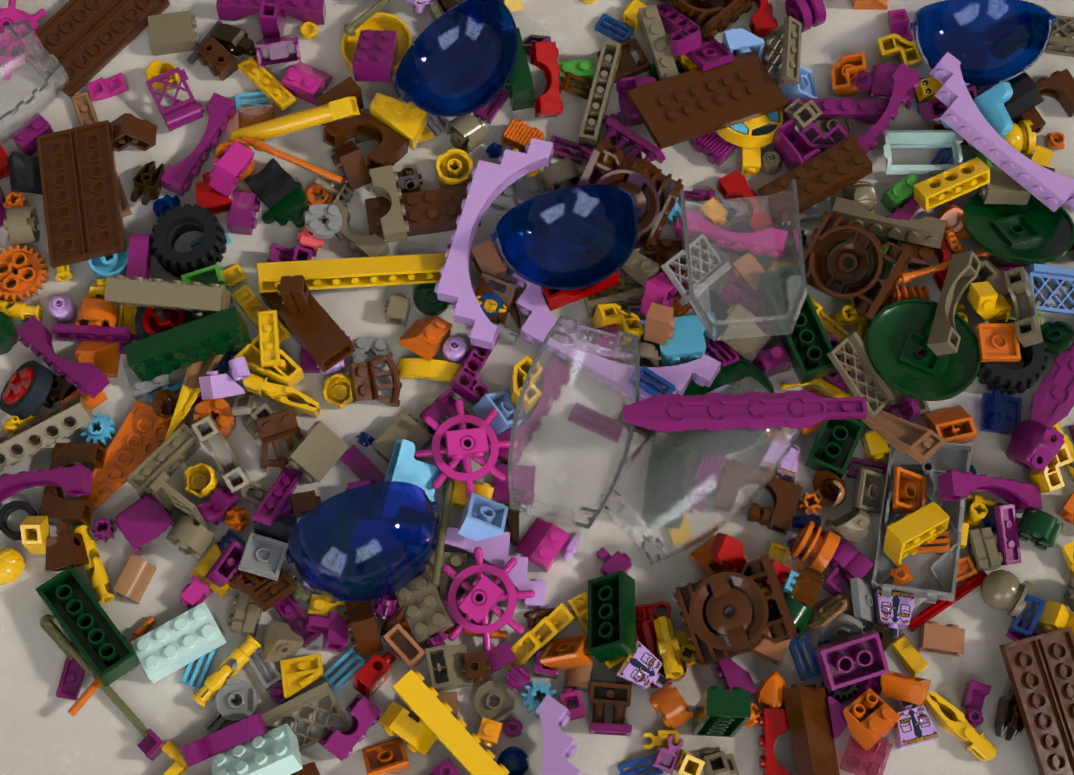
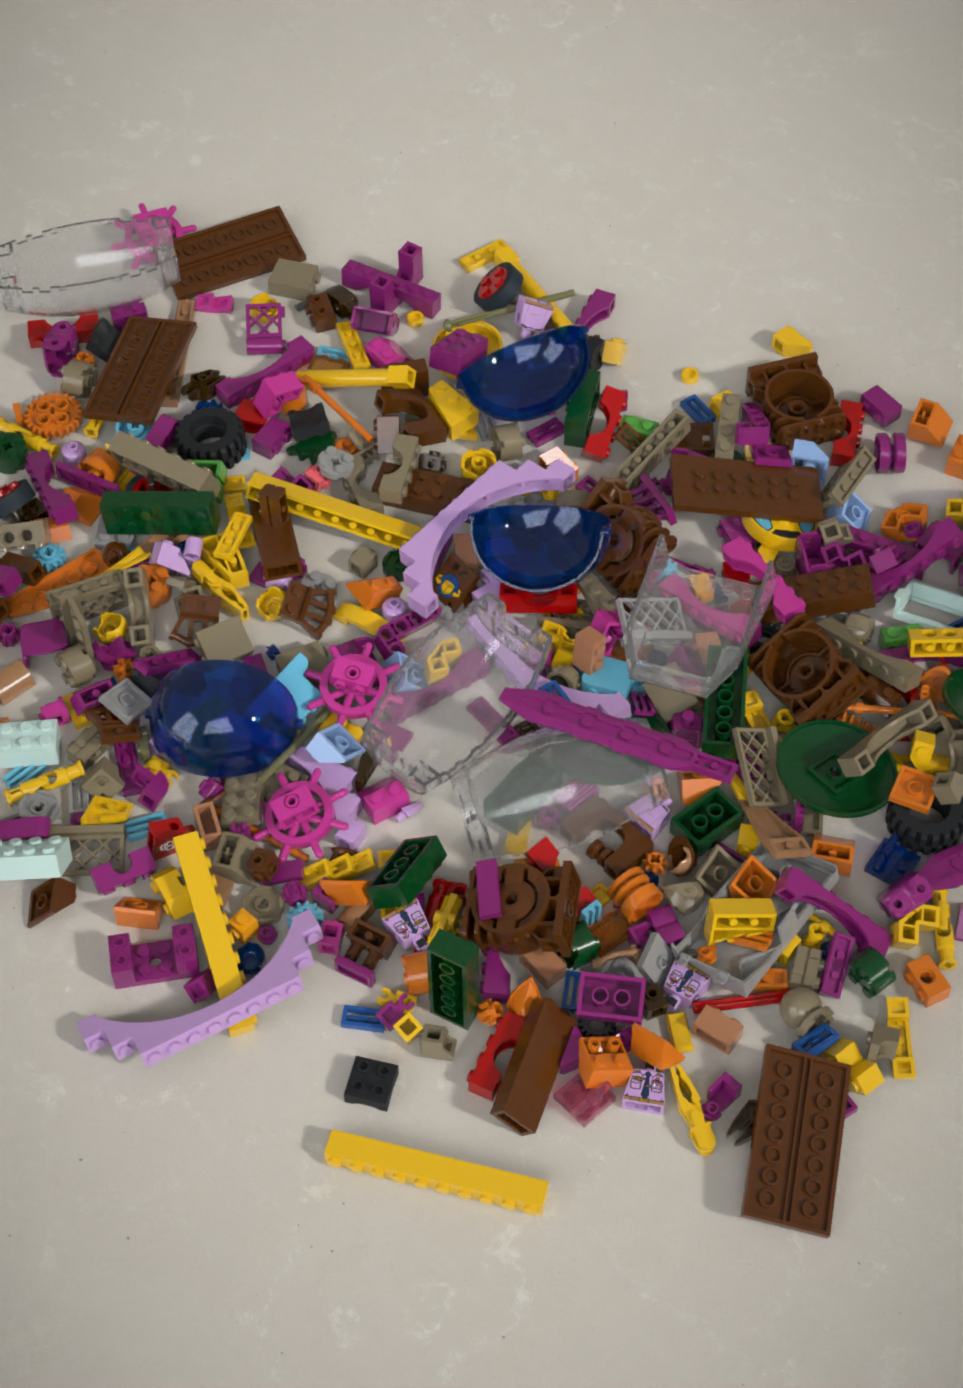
camera: 30 degrees right, 15 degrees down
(132, 131) = (213, 340): reddish brown brick -> none
(362, 623) = (181, 795): reddish brown brick -> none
(614, 563) = (447, 839): magenta brick -> none
(705, 610) = (488, 889): none -> magenta tile
(738, 170) = (743, 558): none -> dark pink arch
(859, 122) = (885, 558): none -> magenta brick

